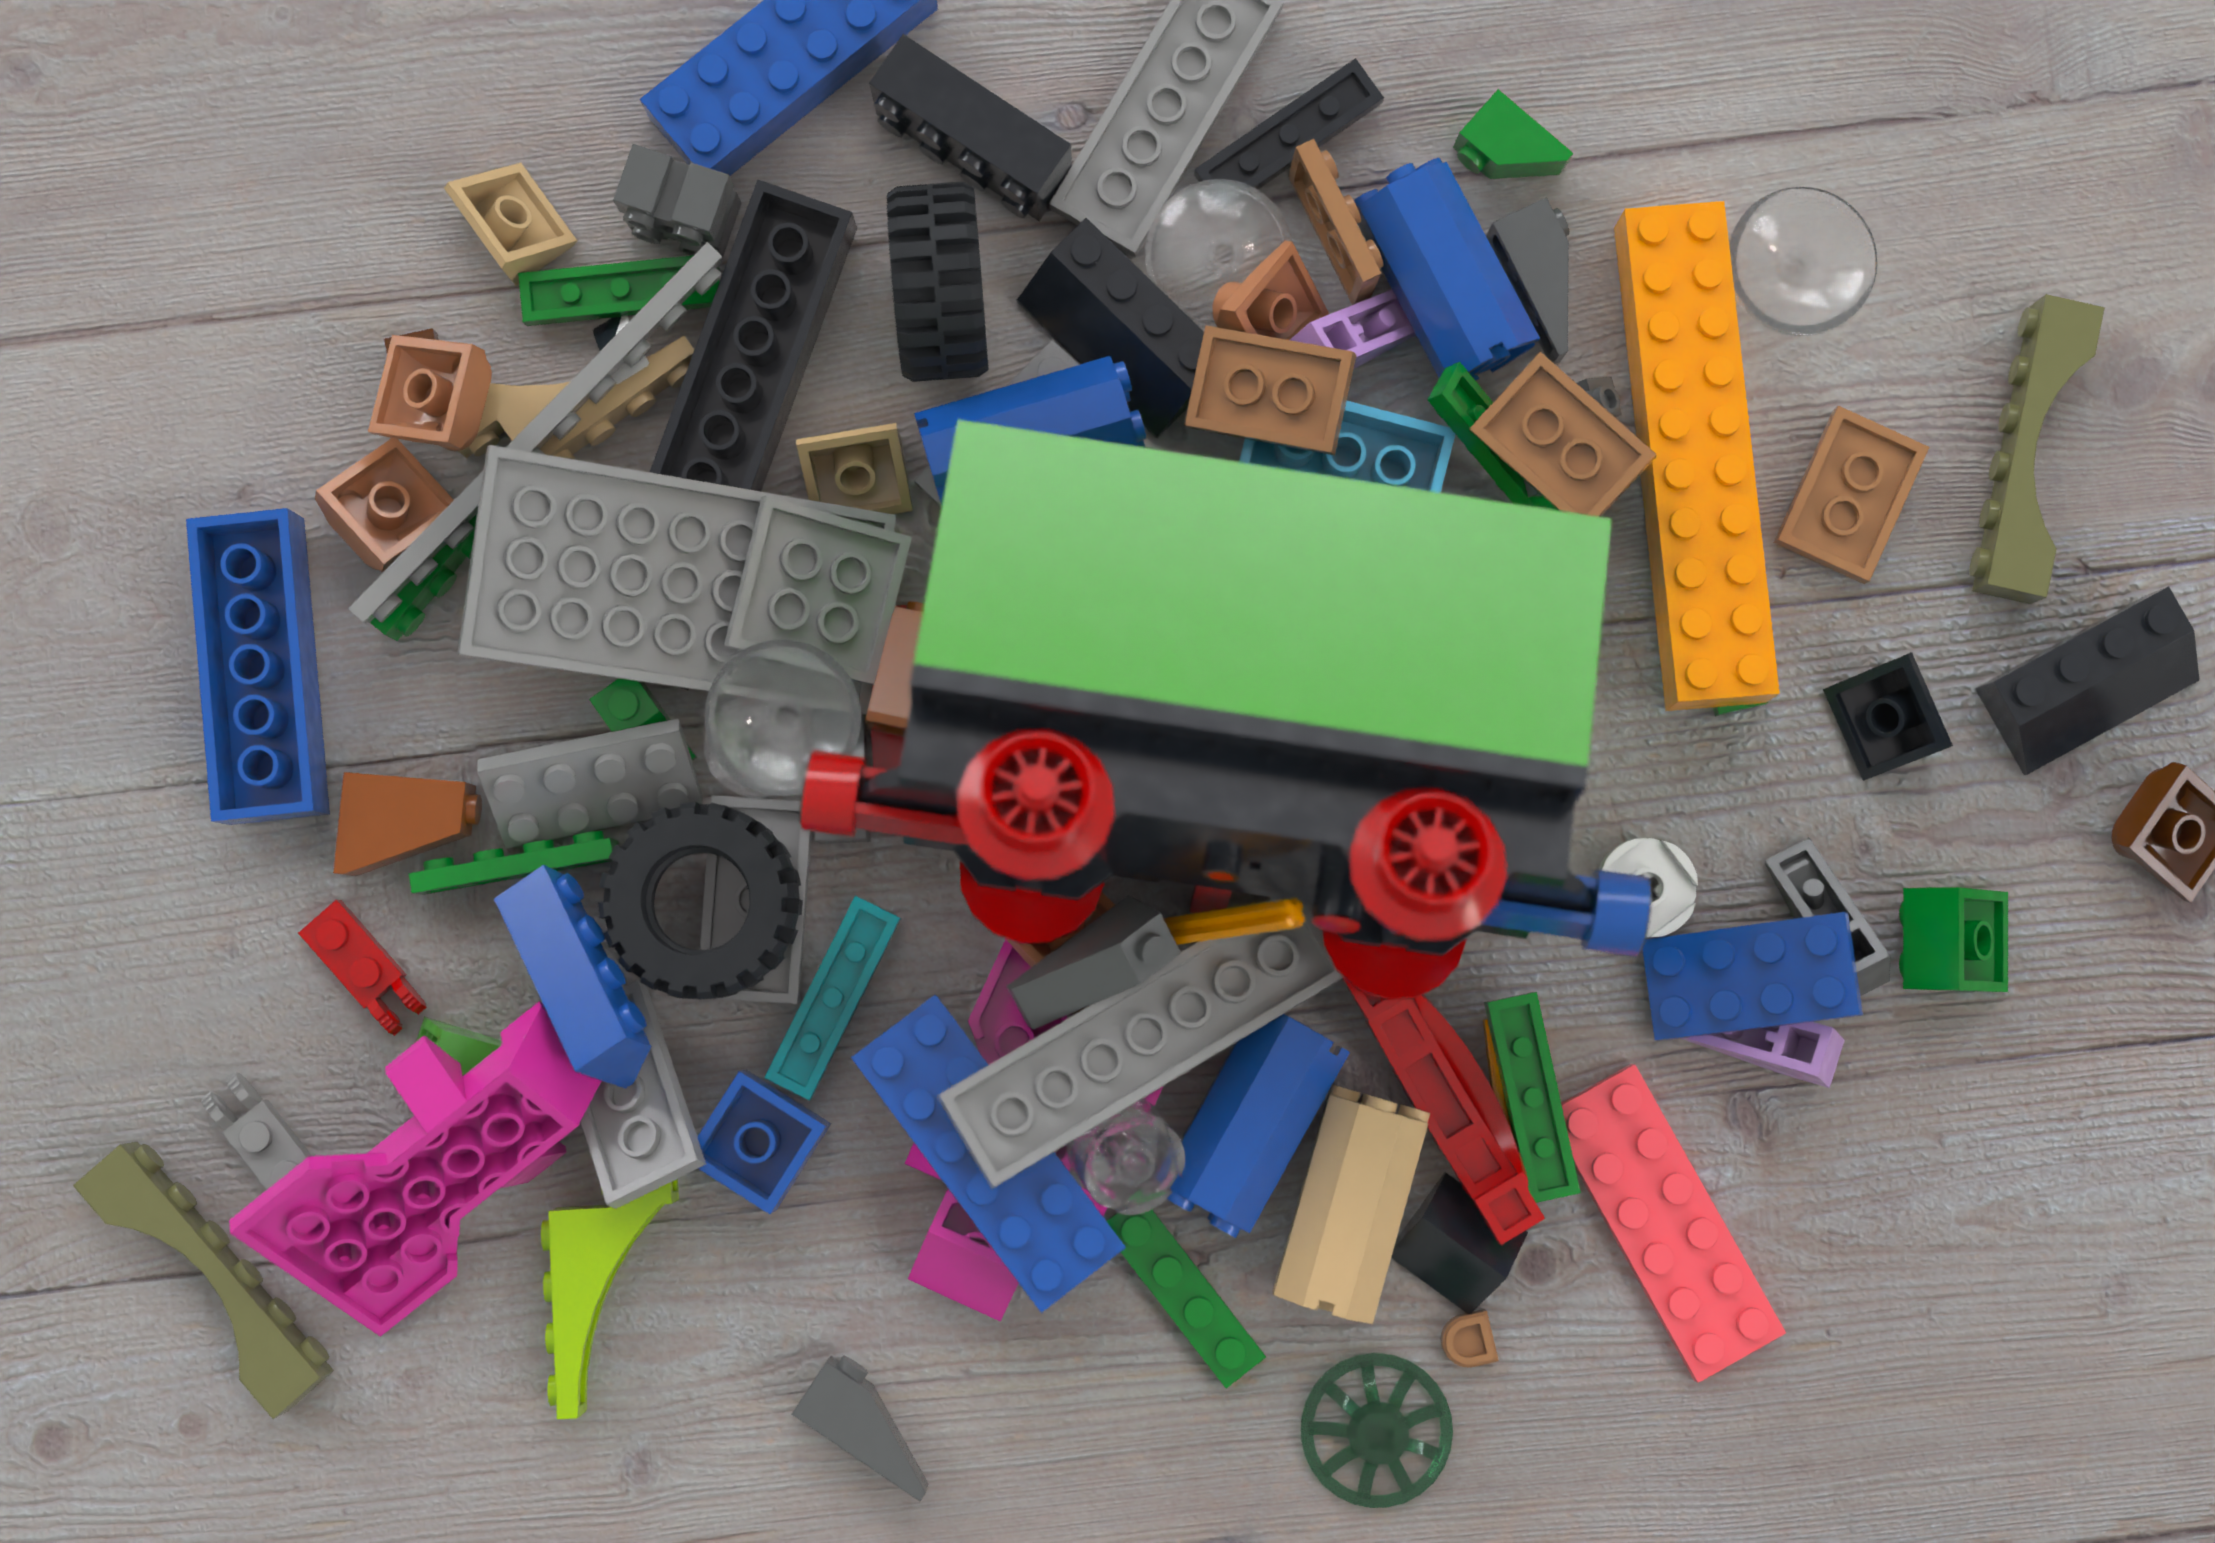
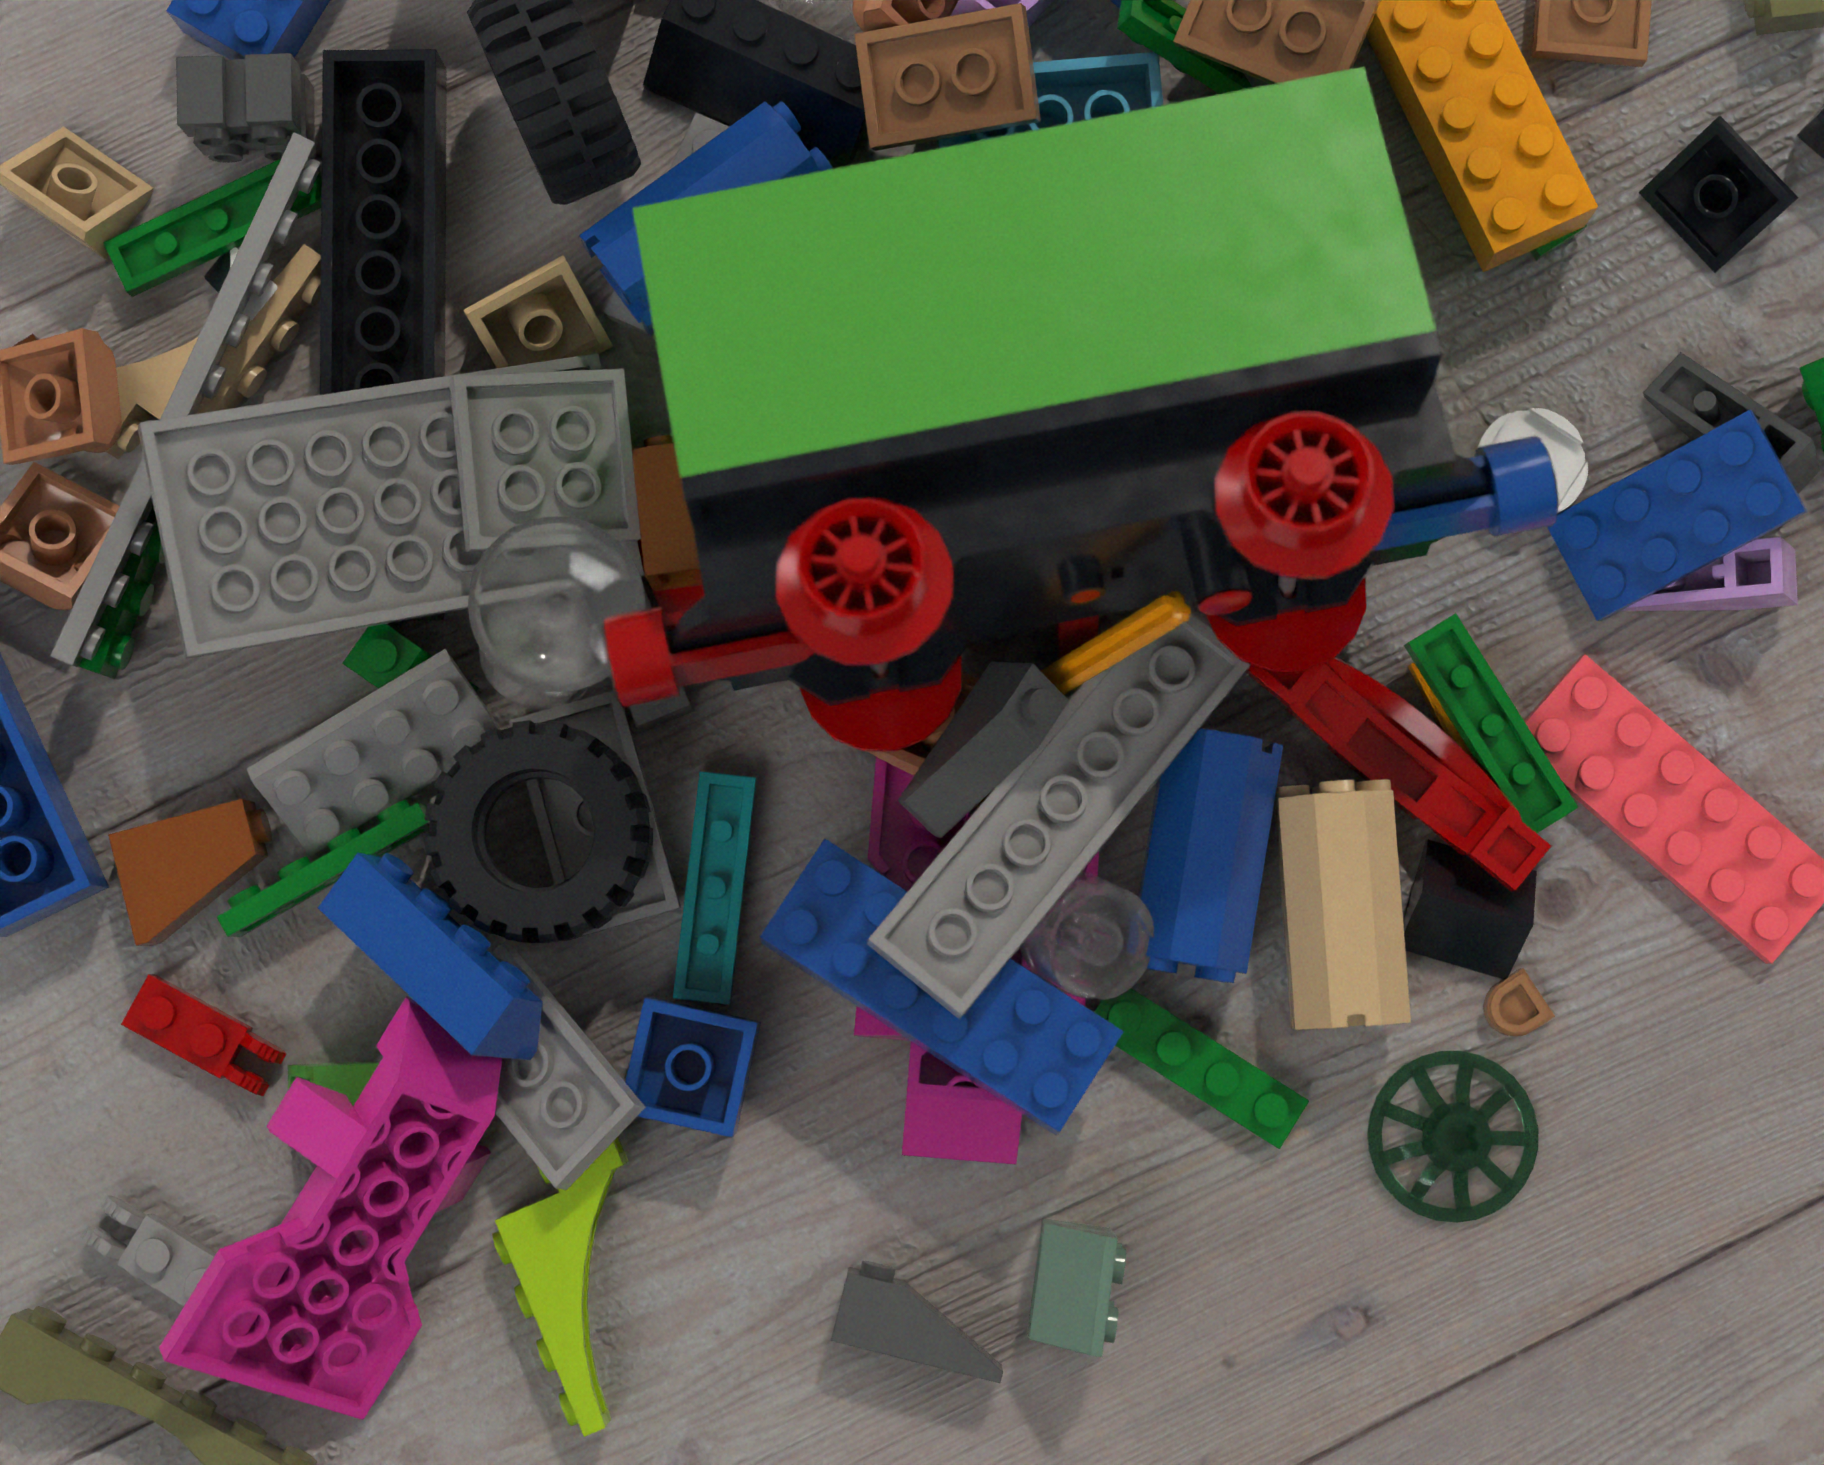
camera: 15 degrees left, 0 degrees up
(1010, 1441) = (1074, 1286): none -> sand green slope

